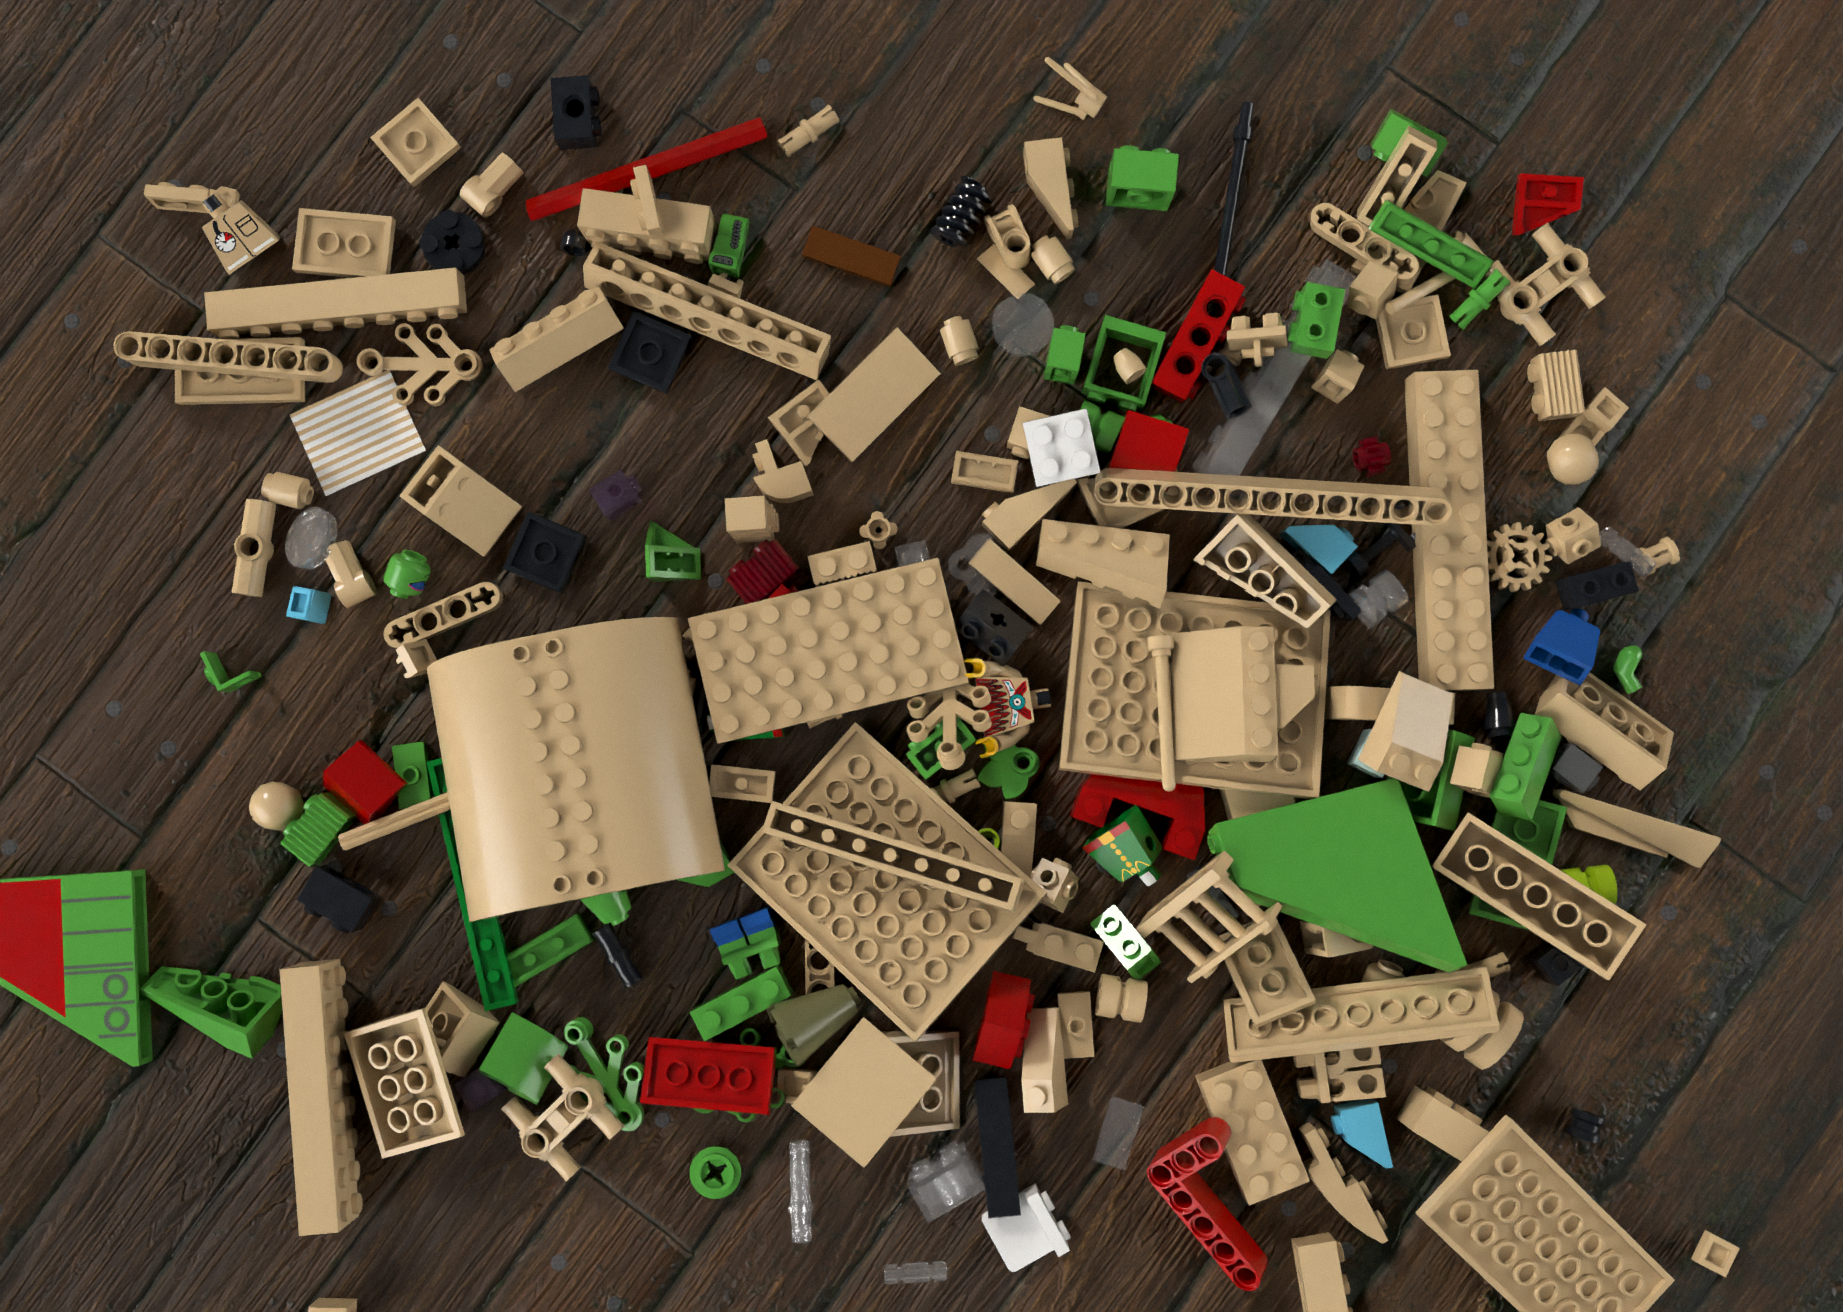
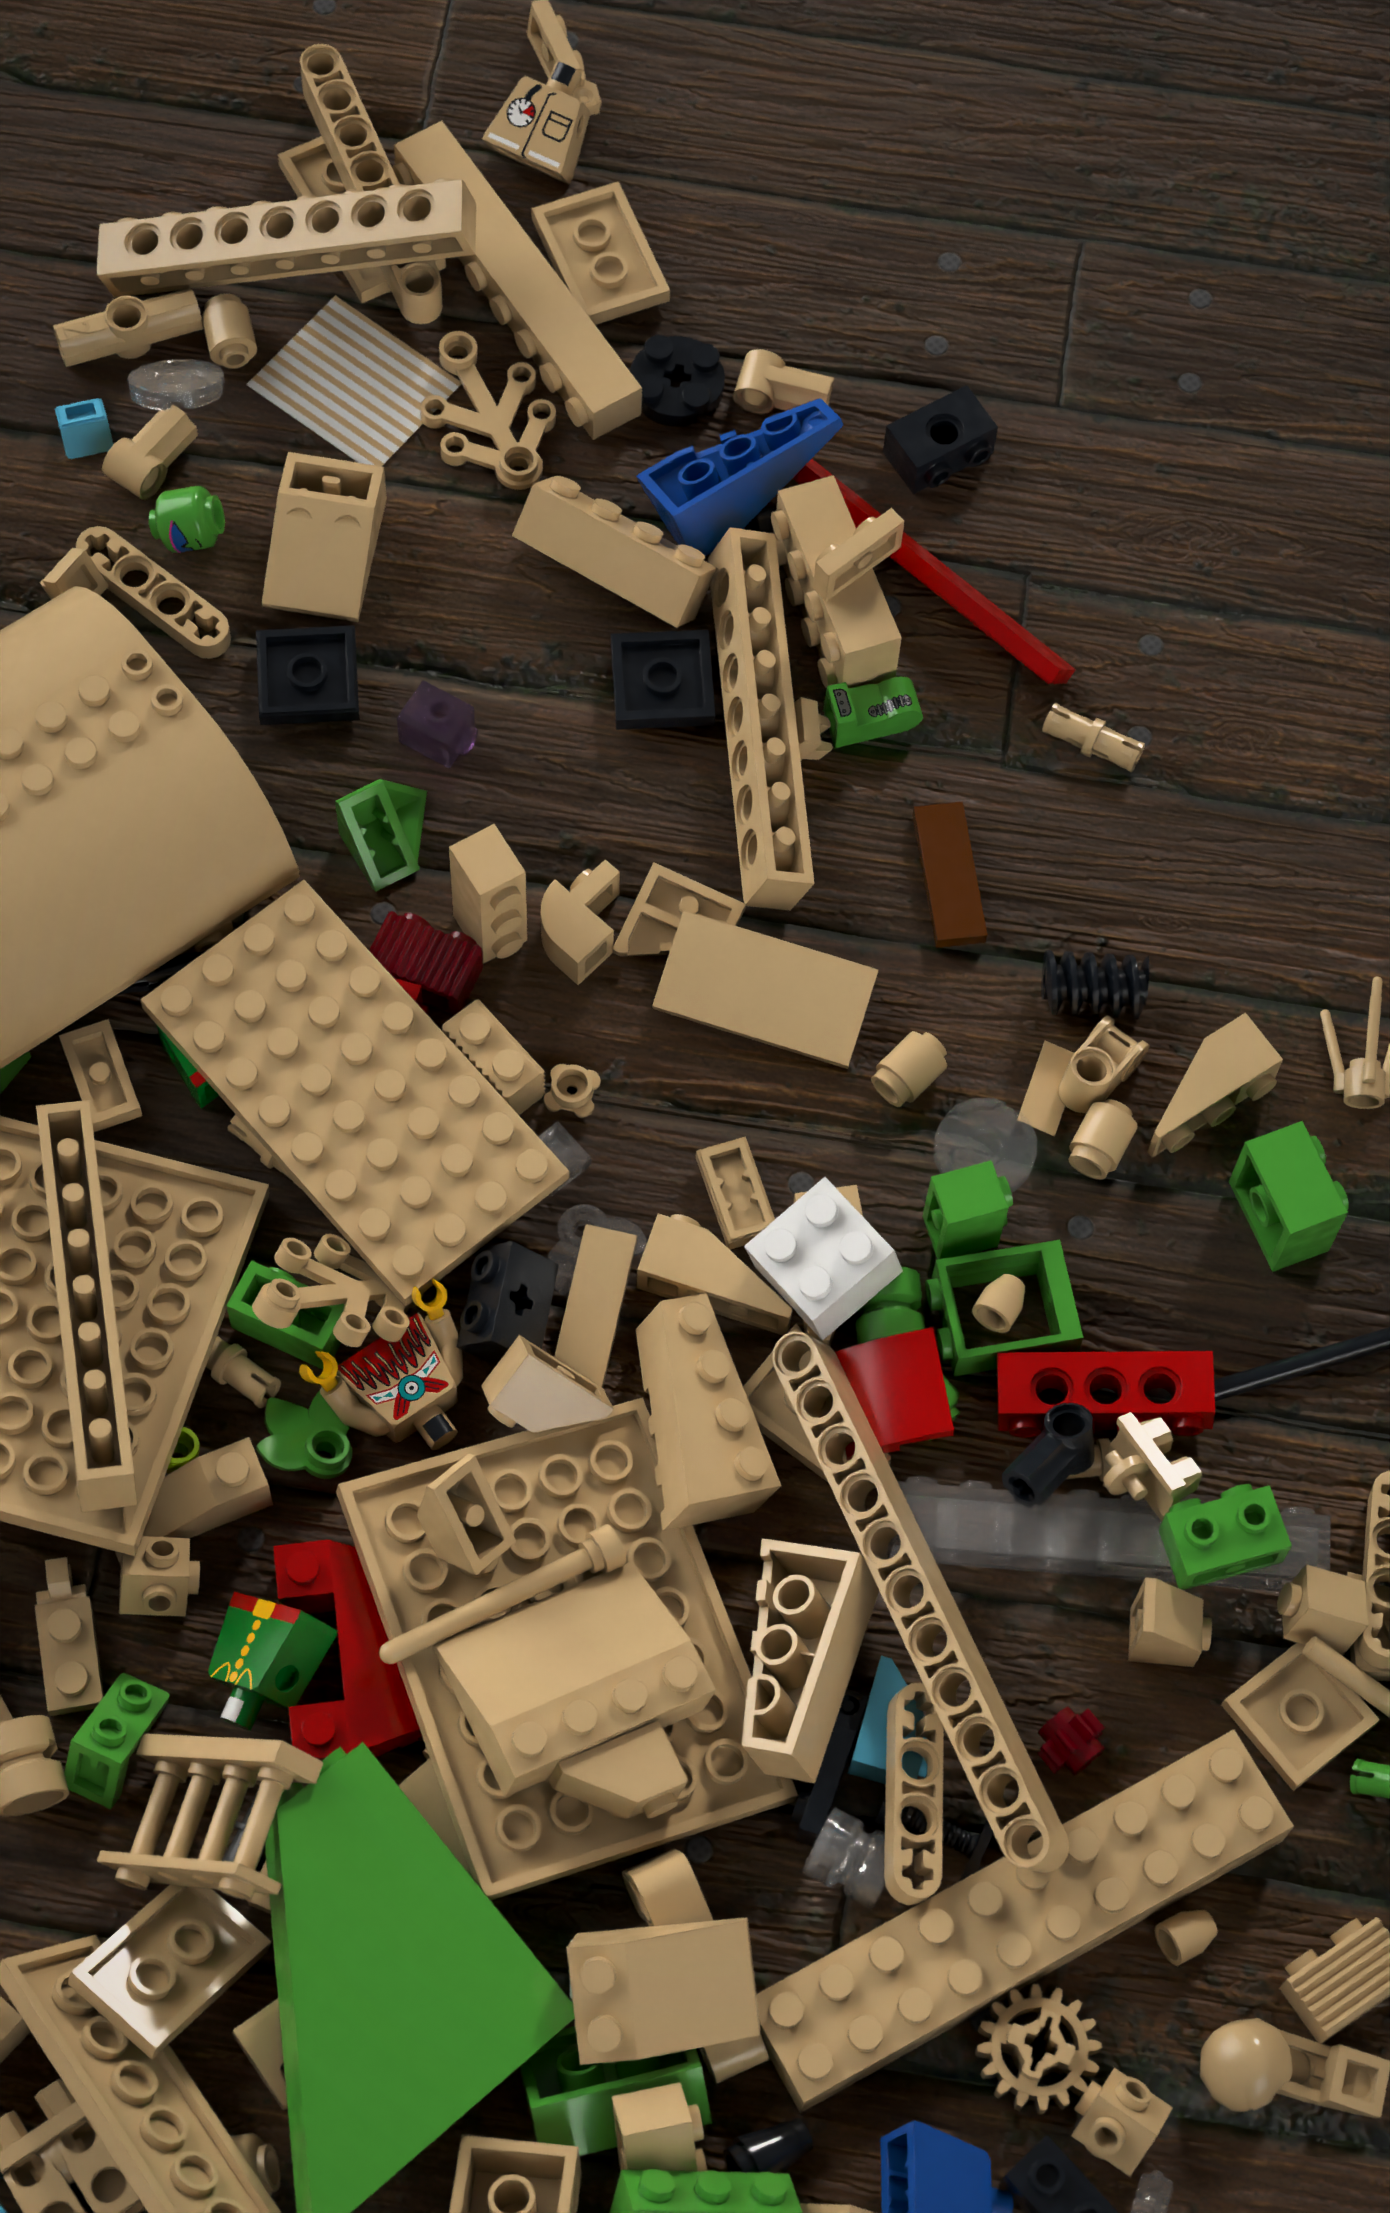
camera: 55 degrees right, 20 degrees down
(302, 331) = (308, 249): none -> tan brick
(415, 142) = (787, 276): tan plate -> none
(544, 252) = (733, 481): none -> blue wedge
(1054, 633) = (541, 1391): none -> tan slope
(1122, 712) = (464, 1518): none -> tan slope
(1367, 558) = (906, 1791): none -> tan beam
(1494, 452) = (1185, 1935): none -> tan hose

